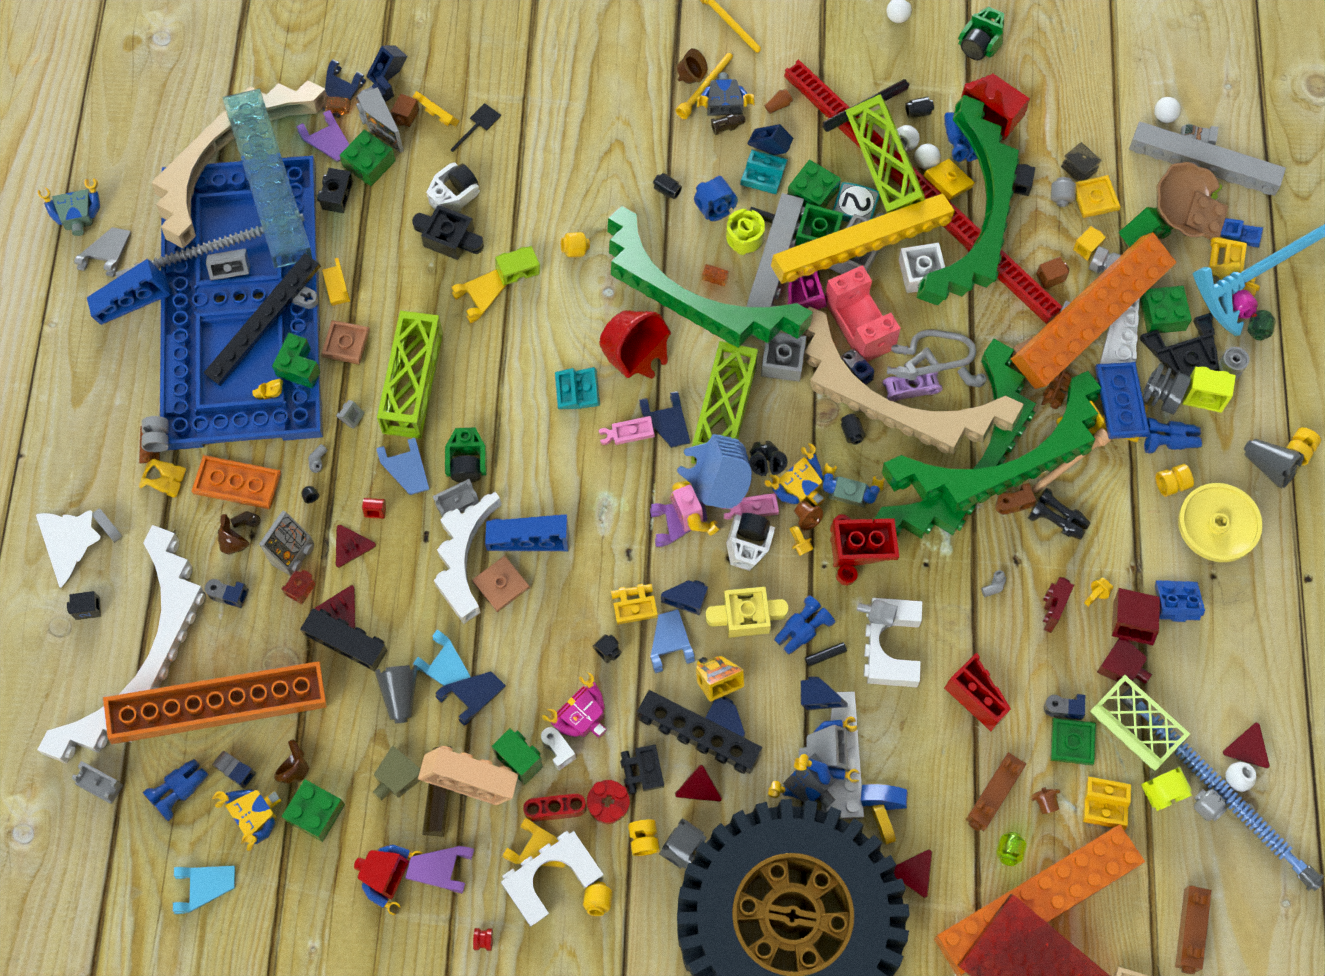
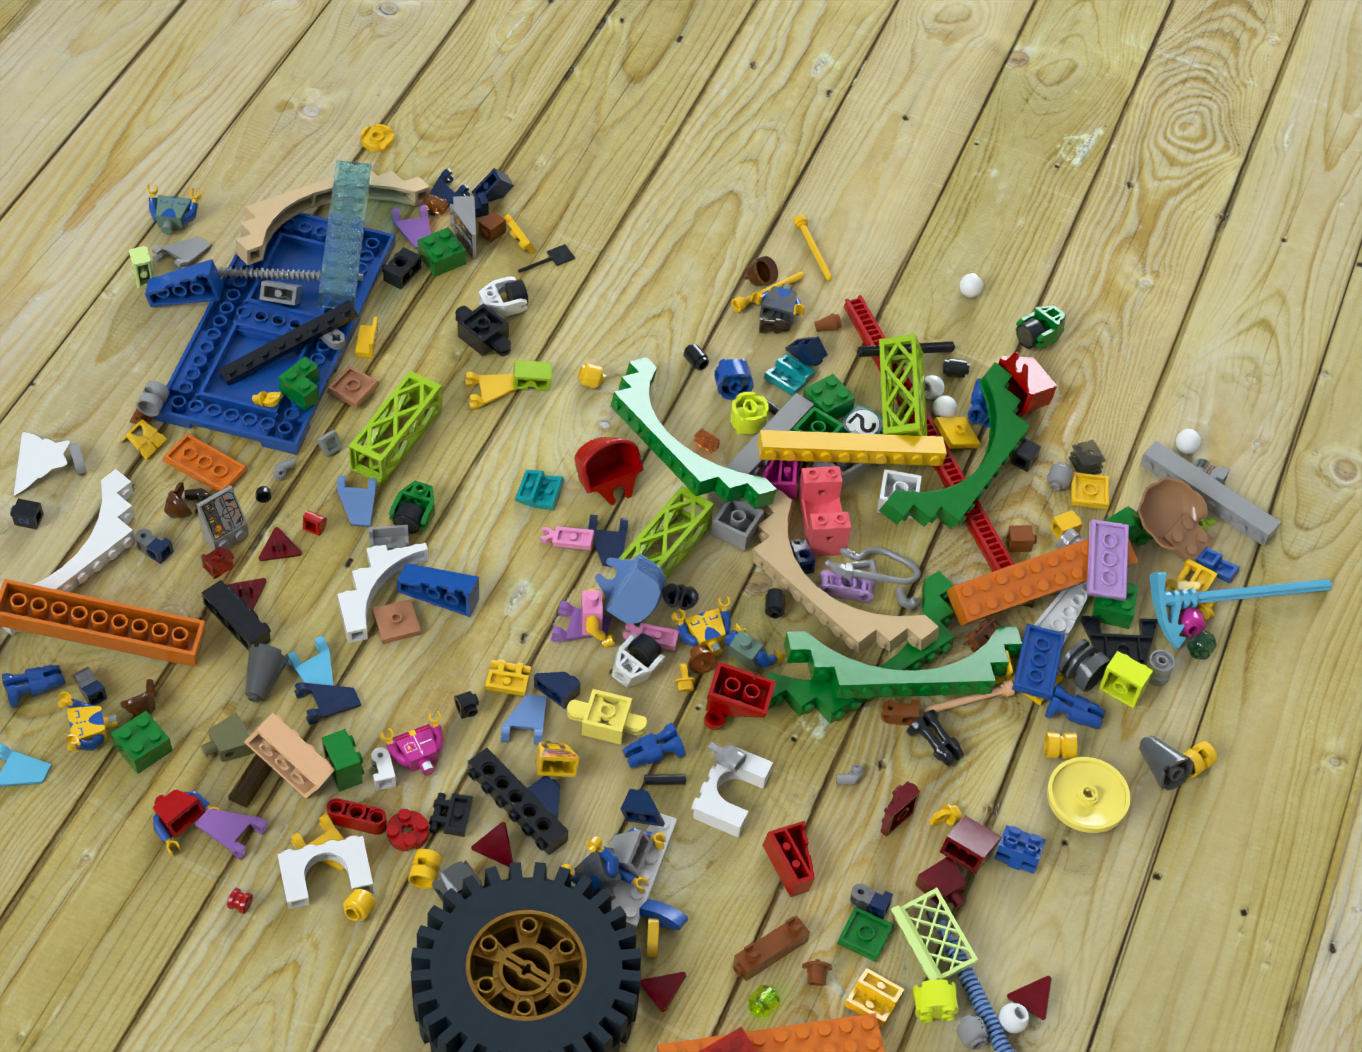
camera: 15 degrees right, 15 degrees down
(73, 286) = (141, 266): none -> yellowish green brick
(244, 47) = (377, 138): none -> yellow tile
(1151, 273) = (1107, 560): none -> lavender tile

